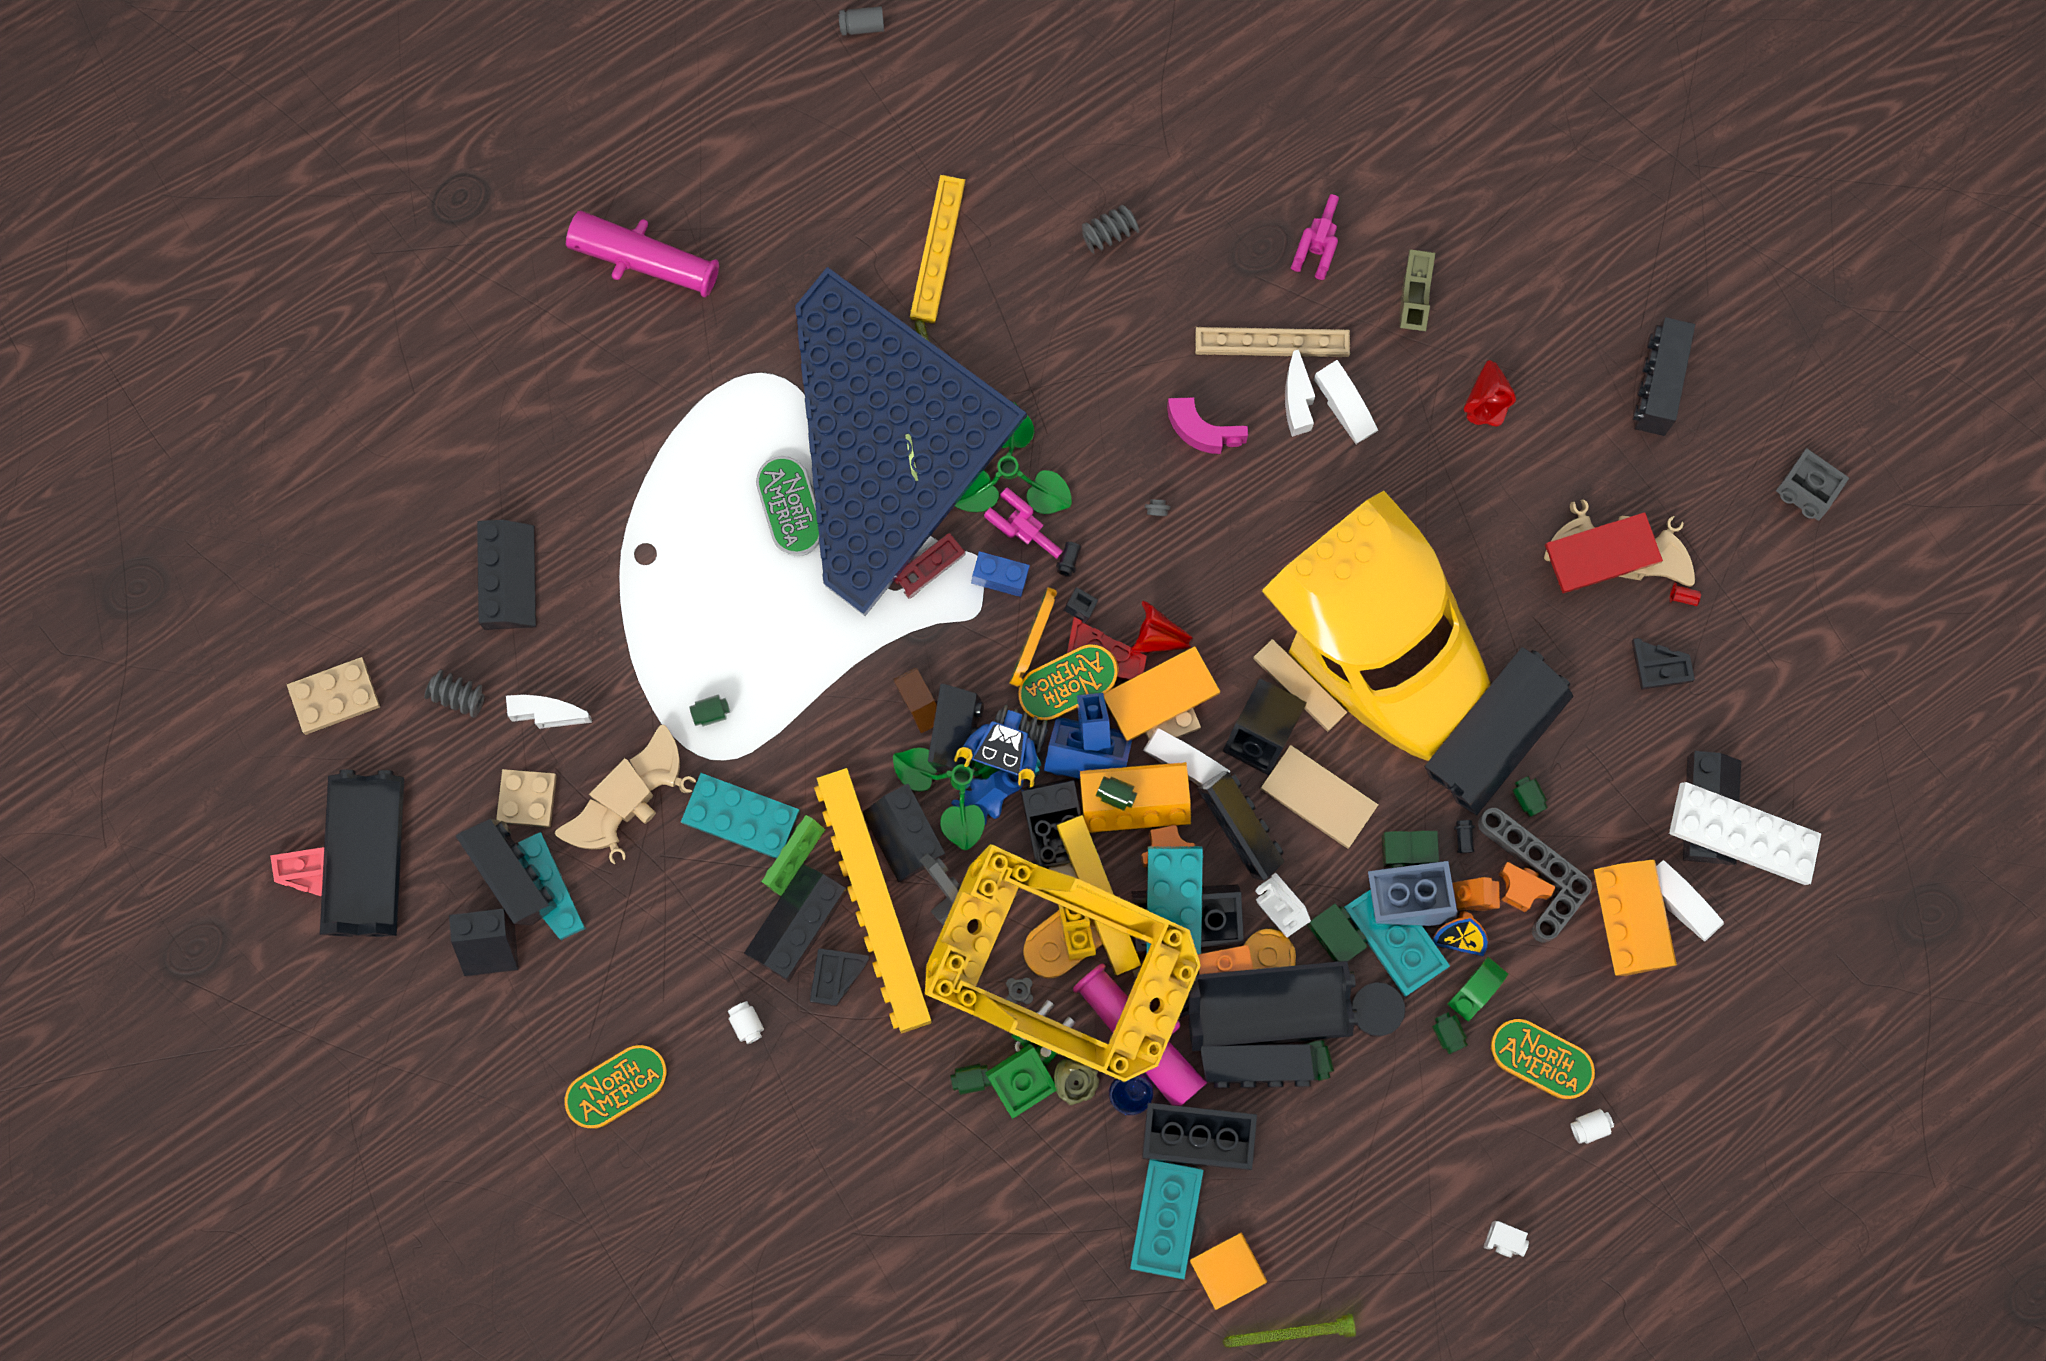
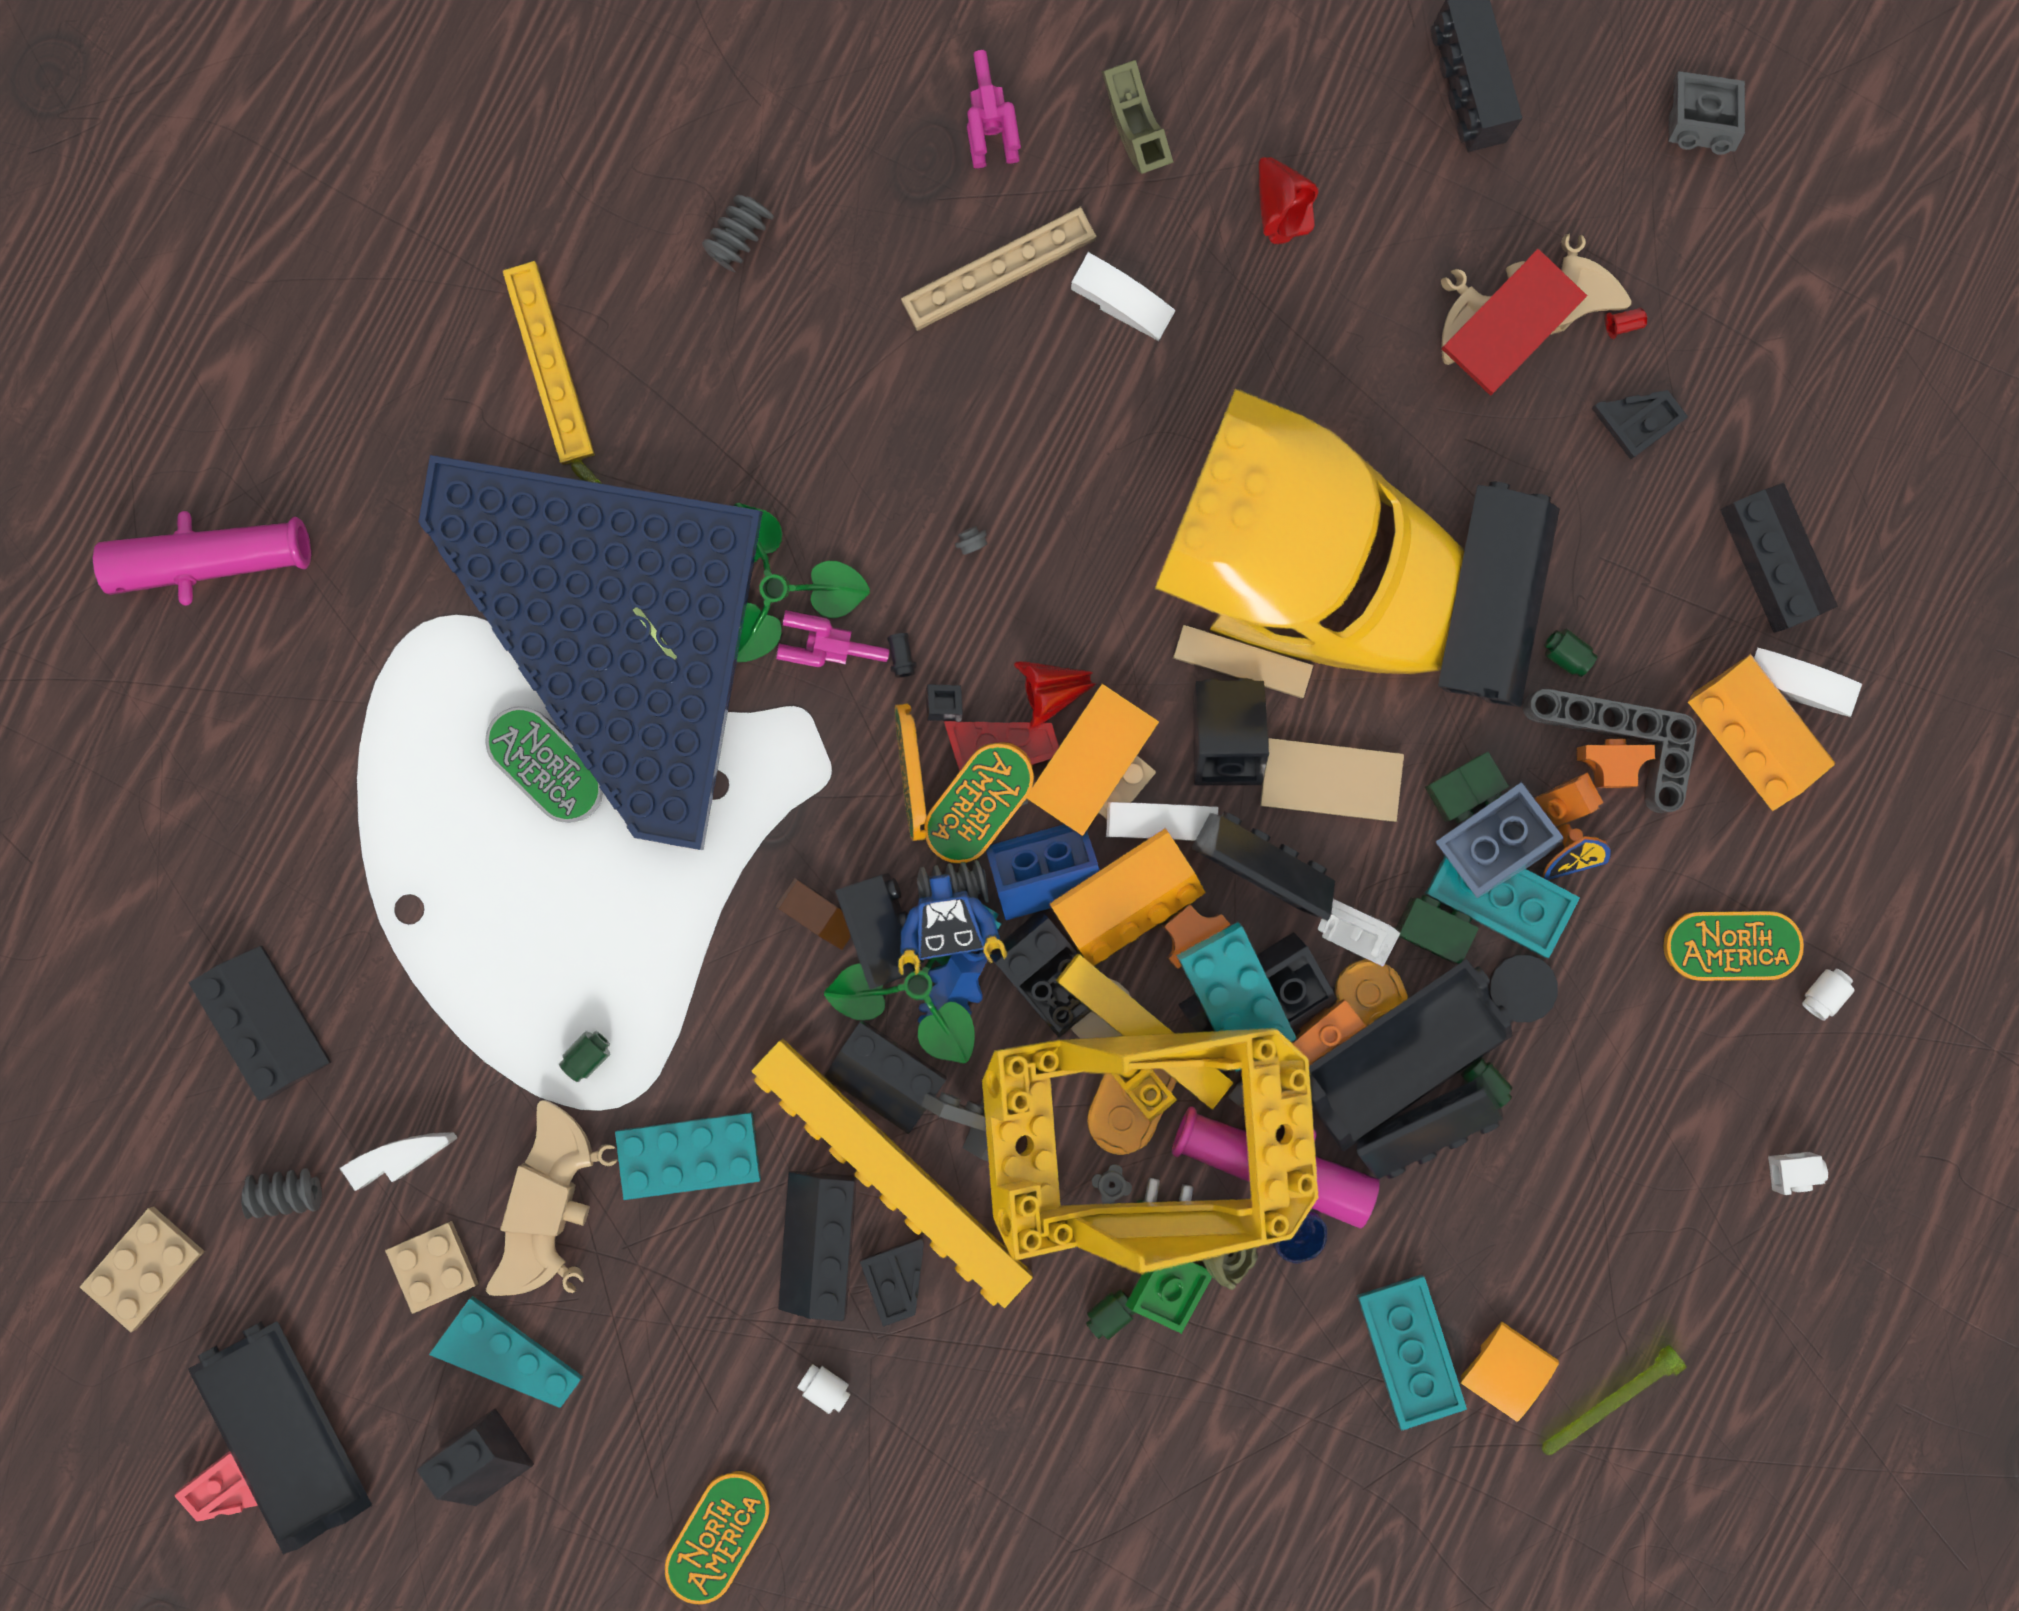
camera: 30 degrees left, 10 degrees up
(507, 871) = (455, 1374): black slope -> none
(793, 855) = (773, 1170): bright green plate -> none
(861, 20) = (304, 129): dark grey piece -> none
(930, 565) = (745, 748): dark red plate -> none
(1000, 574) = (832, 716): blue brick -> none
(1093, 721) = (1034, 837): blue brick -> none
(1116, 793) = (1107, 910): dark green brick -> none
(1199, 1136) = (1404, 1248): black slope -> none
(1200, 433) = (970, 424): dark pink arch -> none
(1298, 397) = (1063, 319): white slope -> none
(1450, 1033) = (1618, 973): dark green brick -> none
(1465, 836) = (1519, 738): black pin -> none
(1478, 989) = (1629, 906): green brick -> none
(1745, 833) = (1837, 569): white plate -> none

